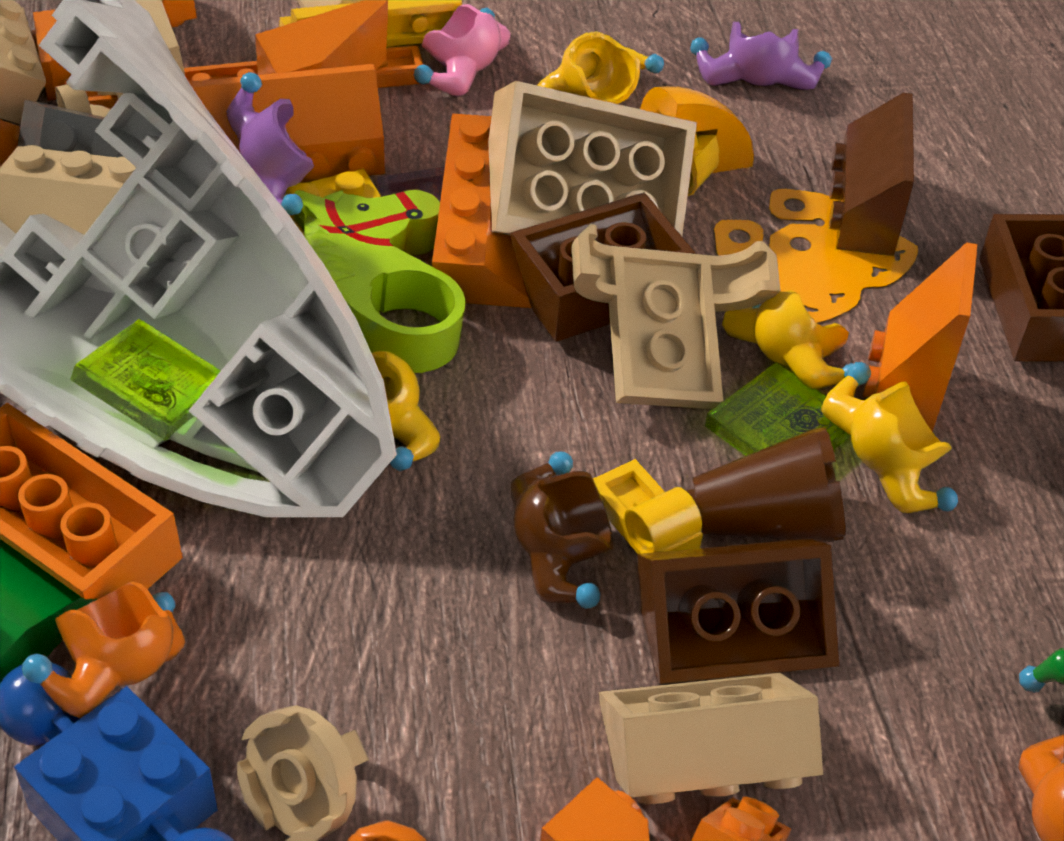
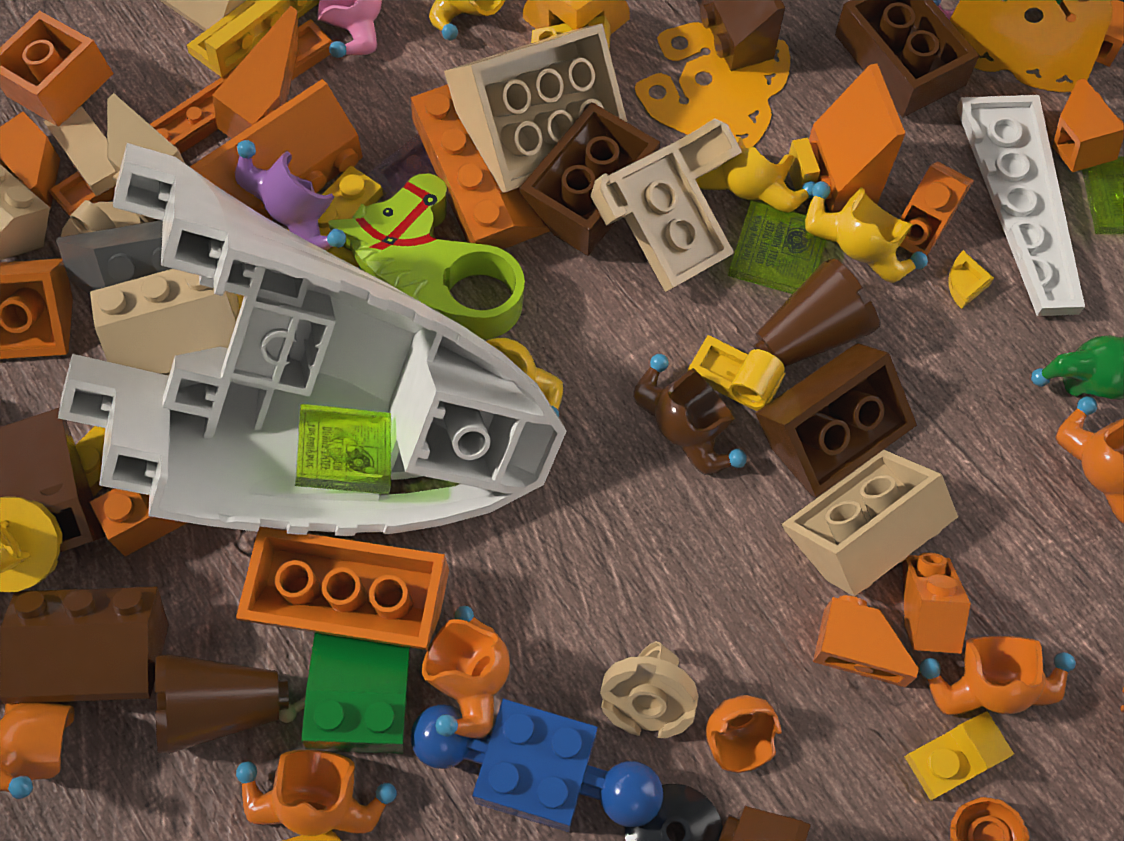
camera: 25 degrees left, 20 degrees up
(860, 342) = (804, 165): none -> yellow tile
(994, 451) = (933, 206): none -> orange slope
(1001, 547) = (967, 279): none -> yellow tile

